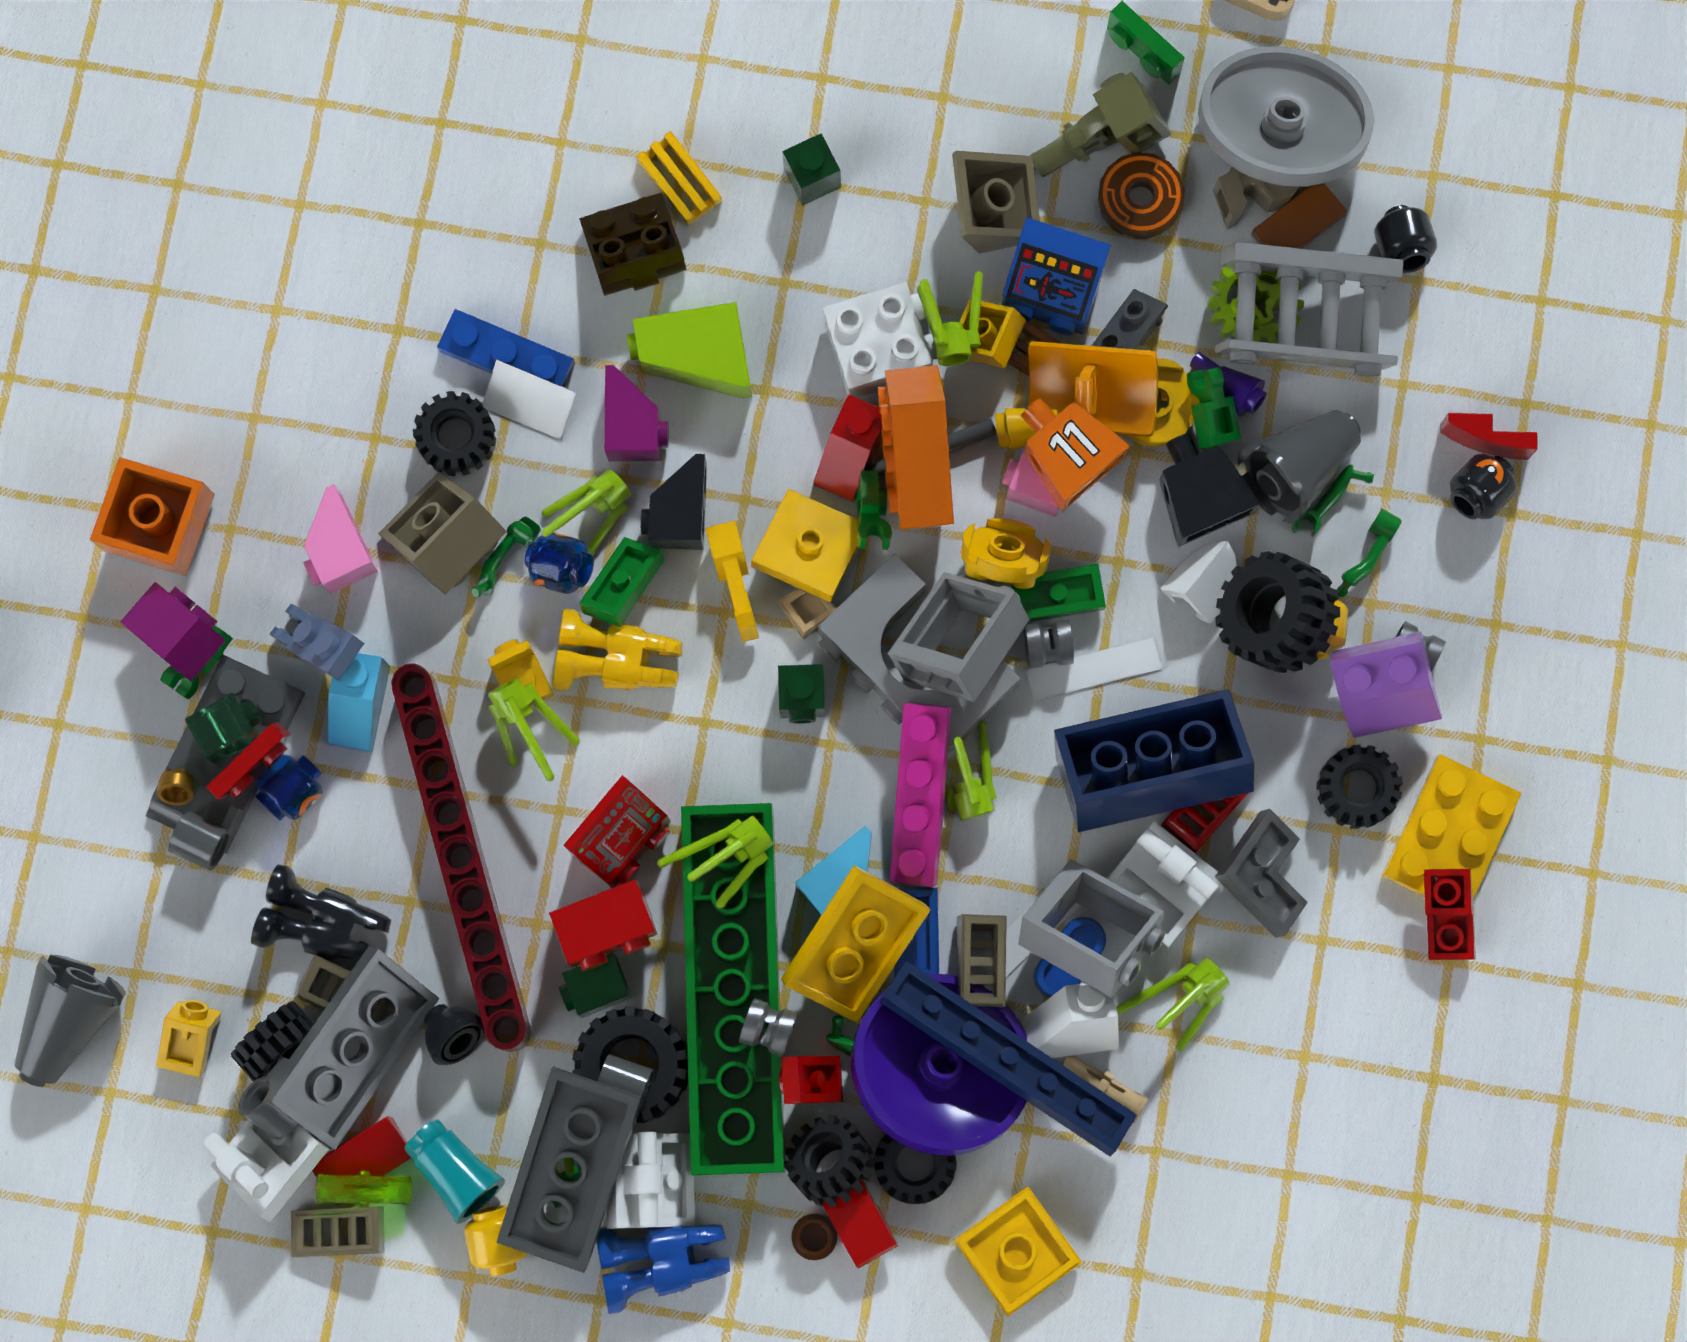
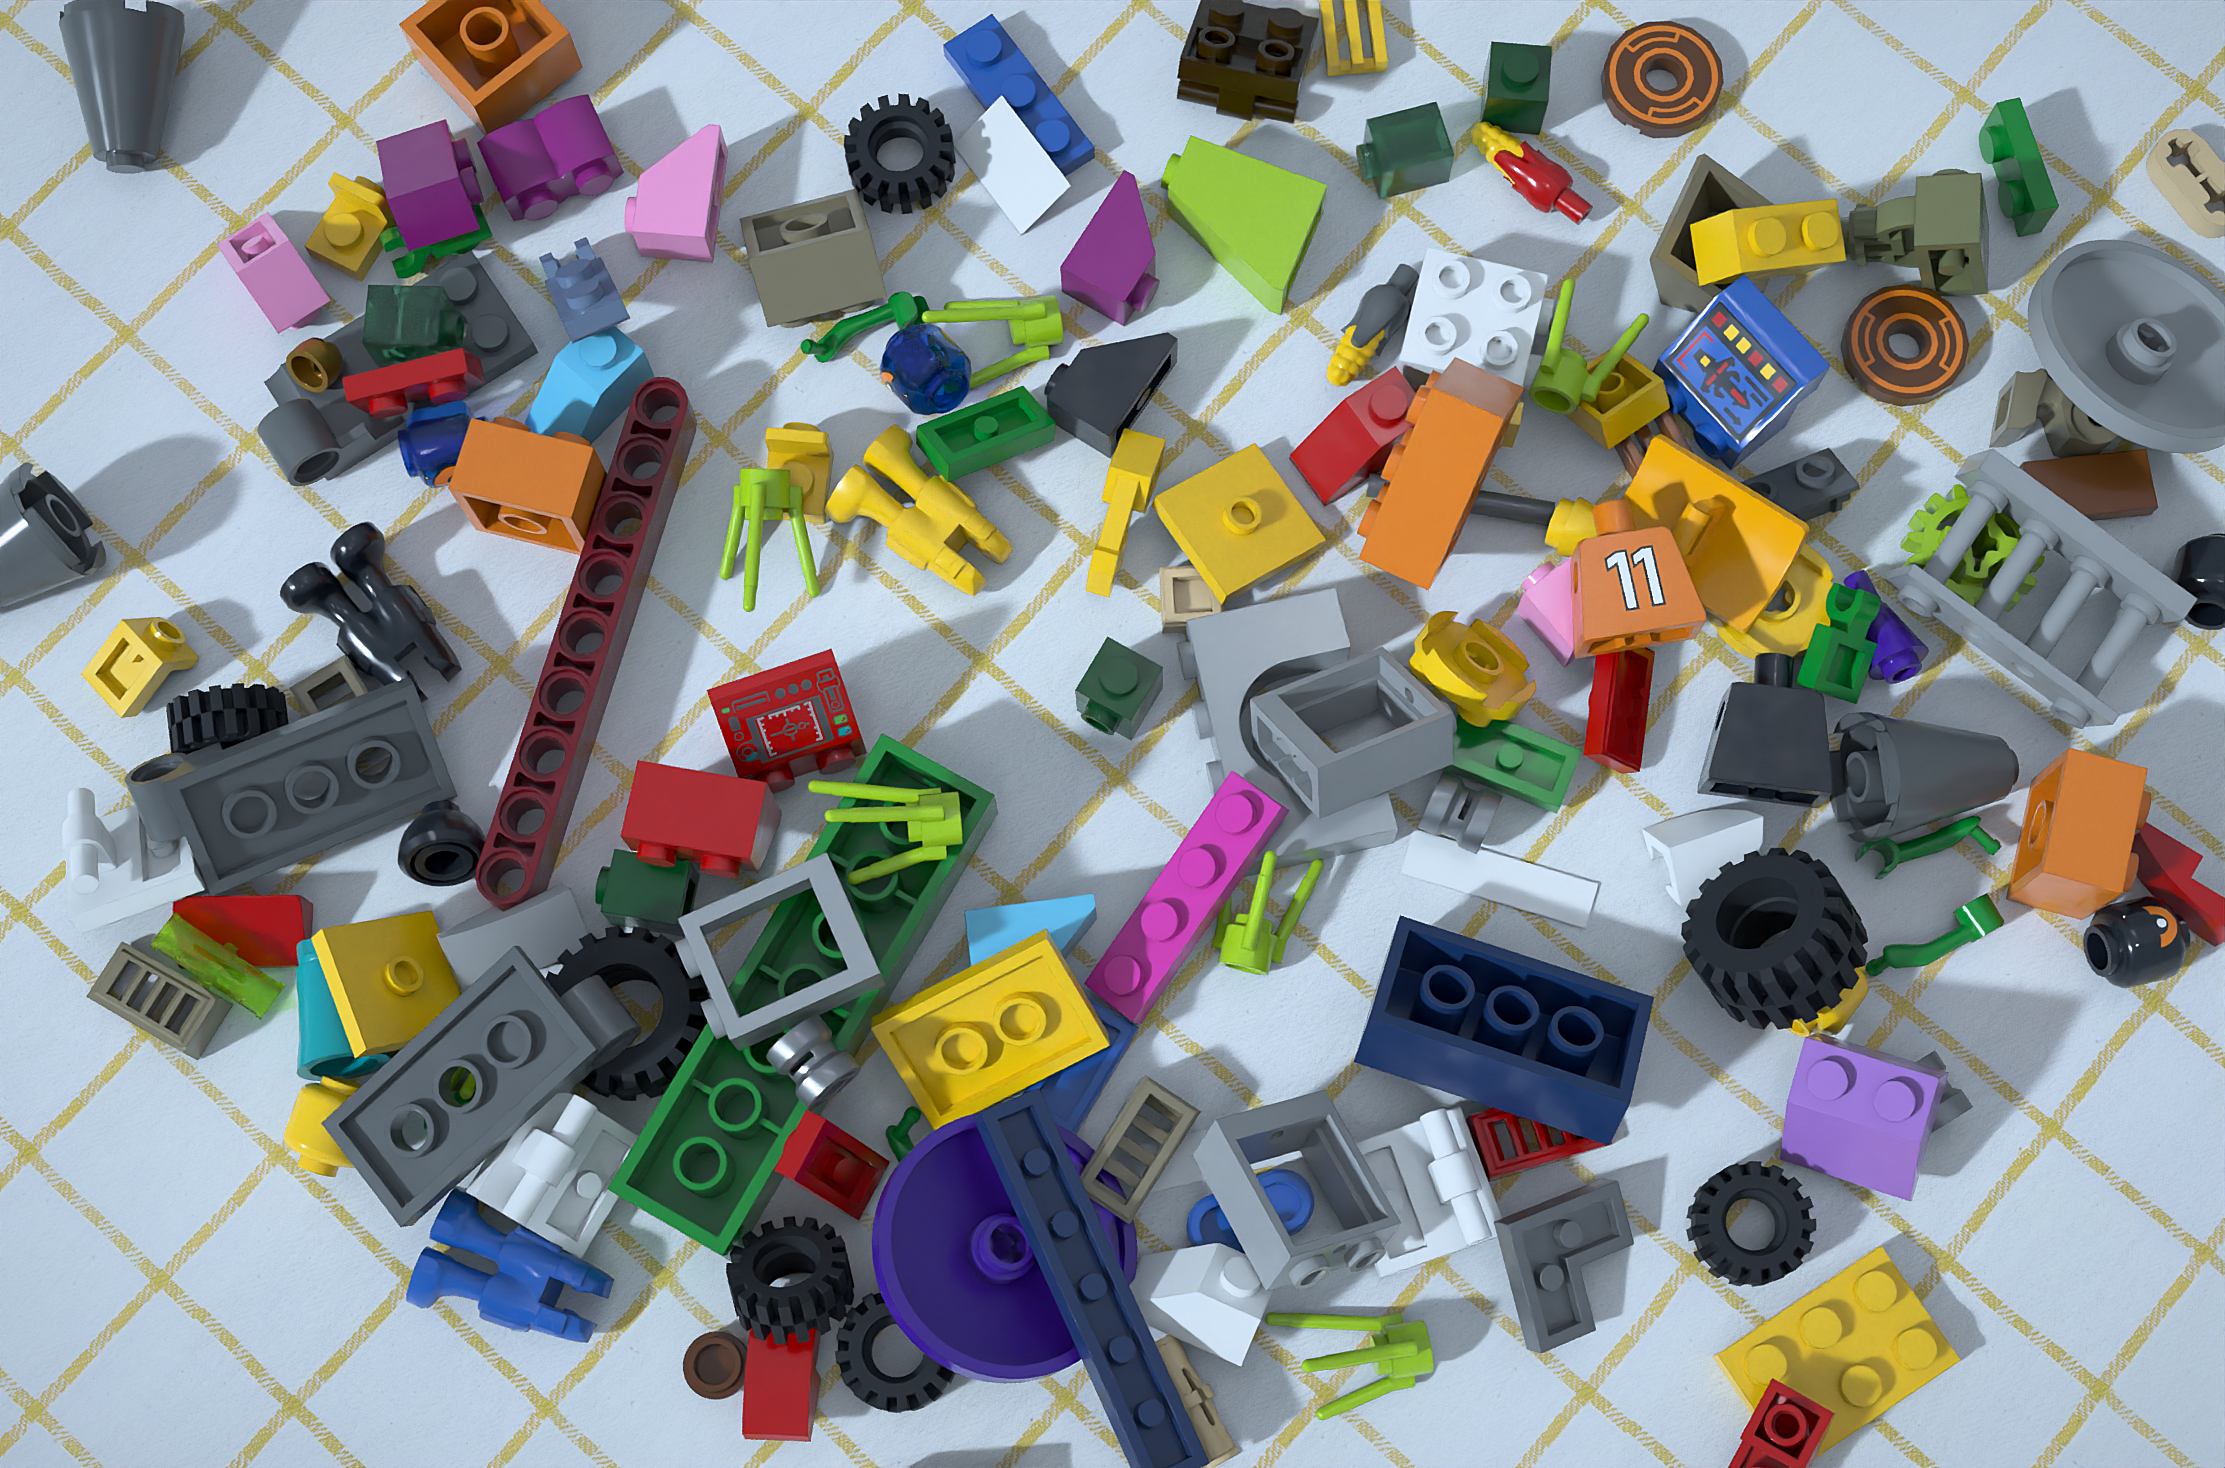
camera: 30 degrees right, 5 degrees down
(107, 743) = (274, 274): none -> bright pink slope
(136, 684) = (351, 226): none -> yellow bracket
(236, 566) = (550, 158): none -> magenta brick
(365, 781) = (528, 483): none -> orange brick
(477, 1134) = (386, 979): none -> yellow plate
(526, 1072) = (538, 925): none -> light grey slope
(733, 935) = (789, 1011): none -> light grey window
(768, 249) = (1405, 151): none -> clear green brick
(814, 372) = (1375, 322): none -> dark grey piece
(851, 216) = (1530, 172): none -> red piece
(871, 504) = (1339, 518): green plate -> none
(900, 85) = (1667, 48): none -> reddish brown tile
(1026, 185) = (1768, 241): none -> yellow brick
(1105, 525) = (1619, 709): none -> red plate
(1415, 443) = (2079, 834): none -> orange brick

